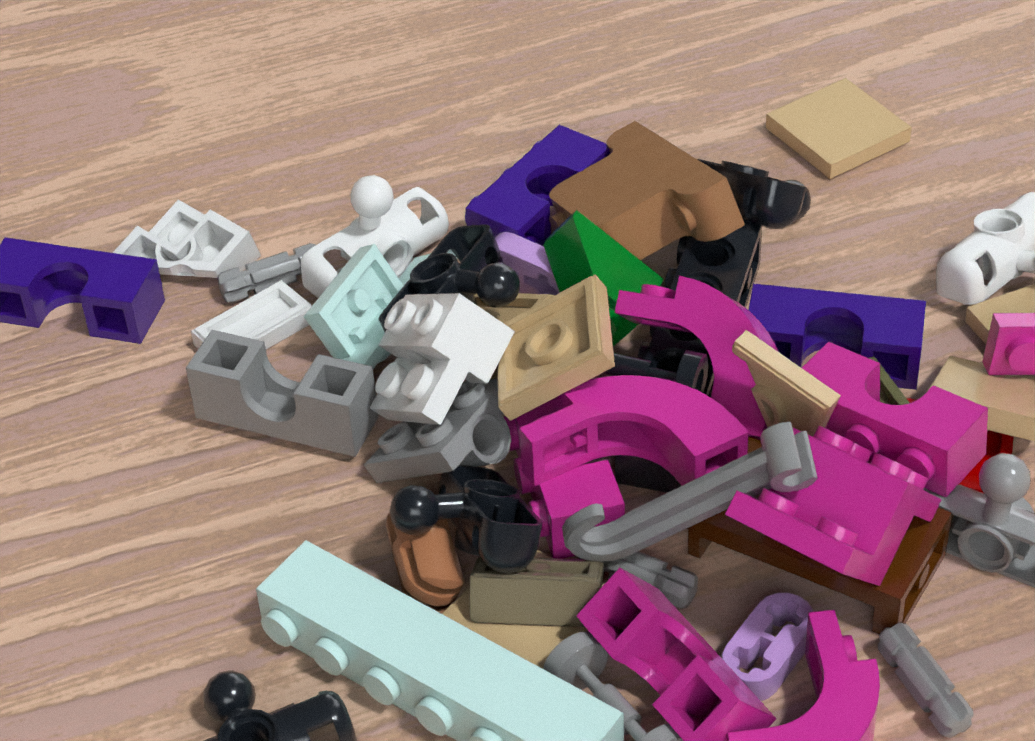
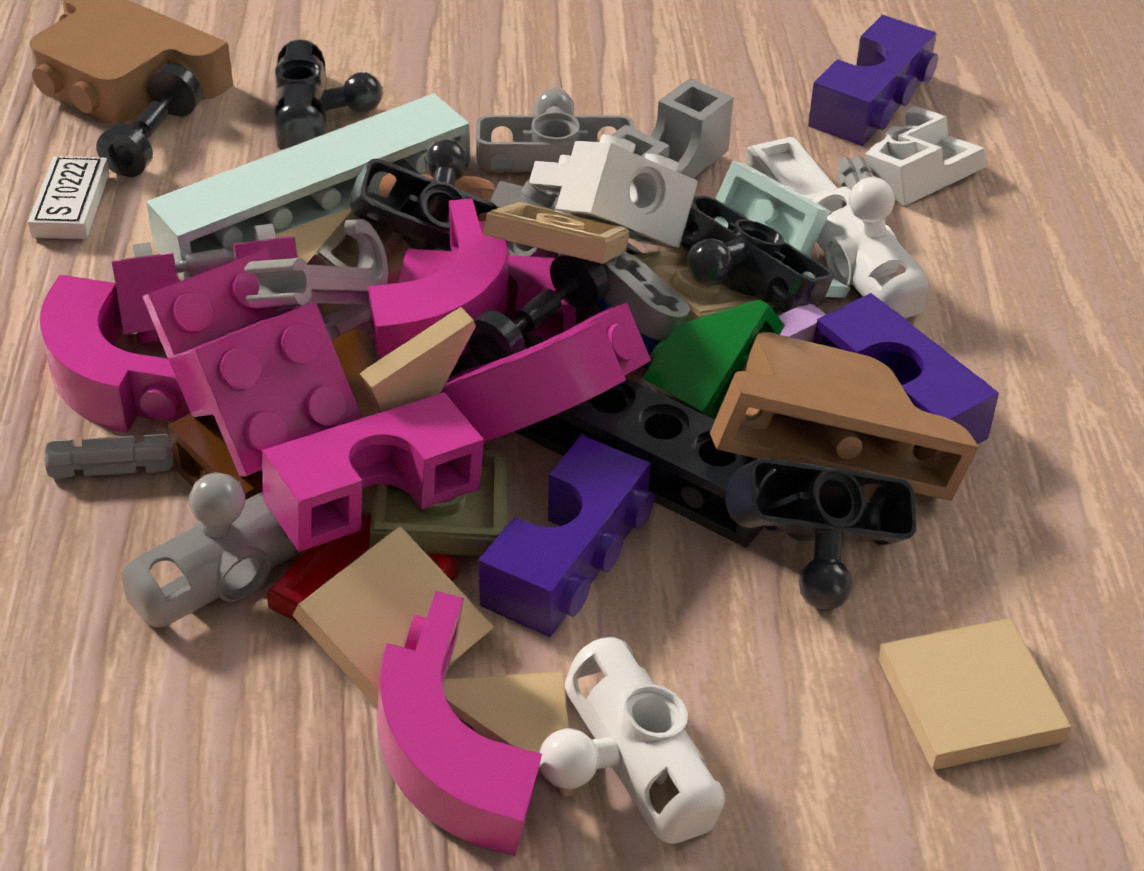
camera: 105 degrees right, 0 degrees up
(280, 484) = (540, 135): none -> light grey piece

